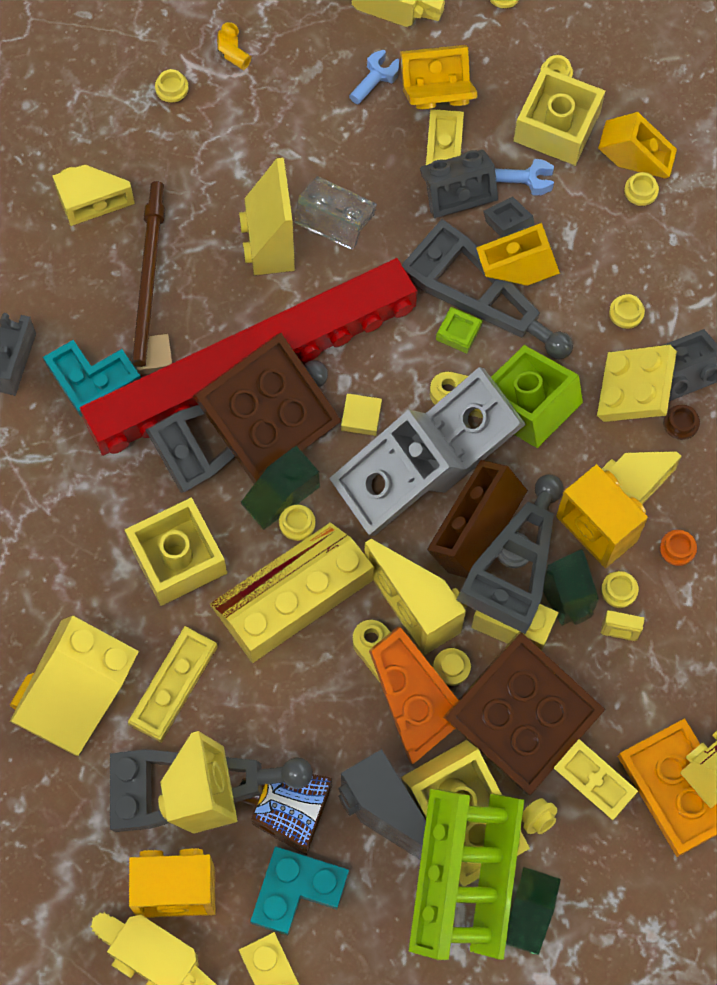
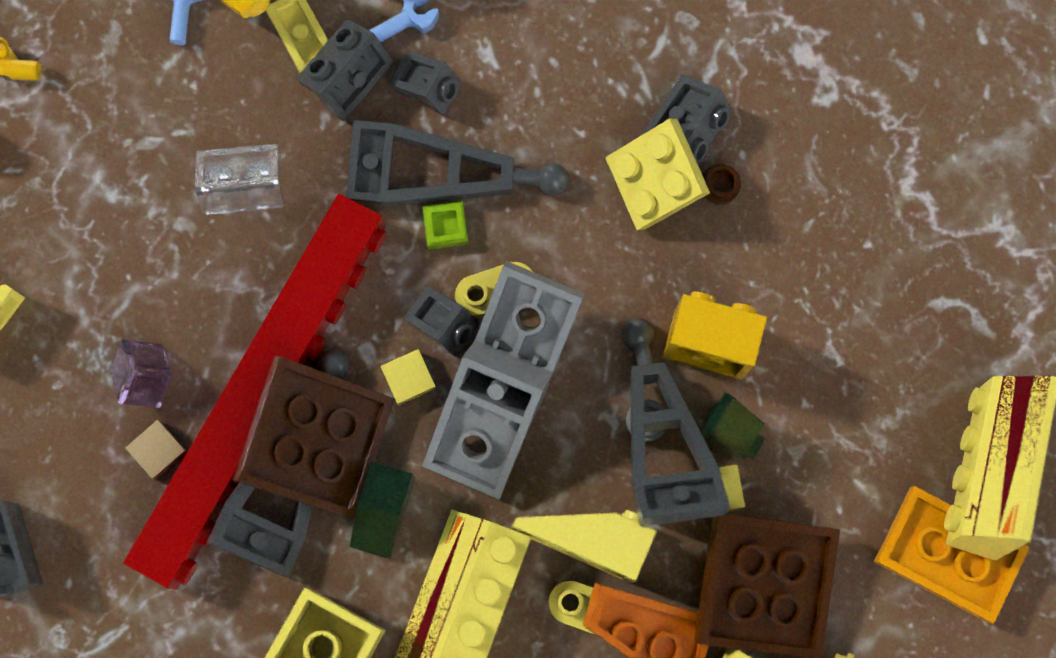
camera: 35 degrees left, 10 degrees up
(86, 382) = (109, 528): teal plate -> none
(153, 216) = (56, 301): reddish brown bar -> none
(177, 297) = (141, 374): none -> clear purple panel
(269, 223) = (183, 239): light yellow slope -> none
(297, 522) = (419, 531): light yellow plate -> none
(411, 387) = (442, 320): none -> dark grey bracket
(452, 666) = (665, 579): light yellow plate -> none
(477, 517) = (596, 416): reddish brown brick -> none
(519, 257) = (458, 114): yellow slope -> none
(539, 392) = (567, 246): lime slope -> none
(596, 779) = (875, 603): light yellow hinge -> none
(619, 589) = (770, 394): light yellow plate -> none
(622, 625) = (798, 431): light yellow tile -> none
(627, 311) = (596, 102): light yellow plate -> none
(643, 472) = (718, 268): light yellow slope -> none
(678, 547) = (798, 315): orange plate -> none

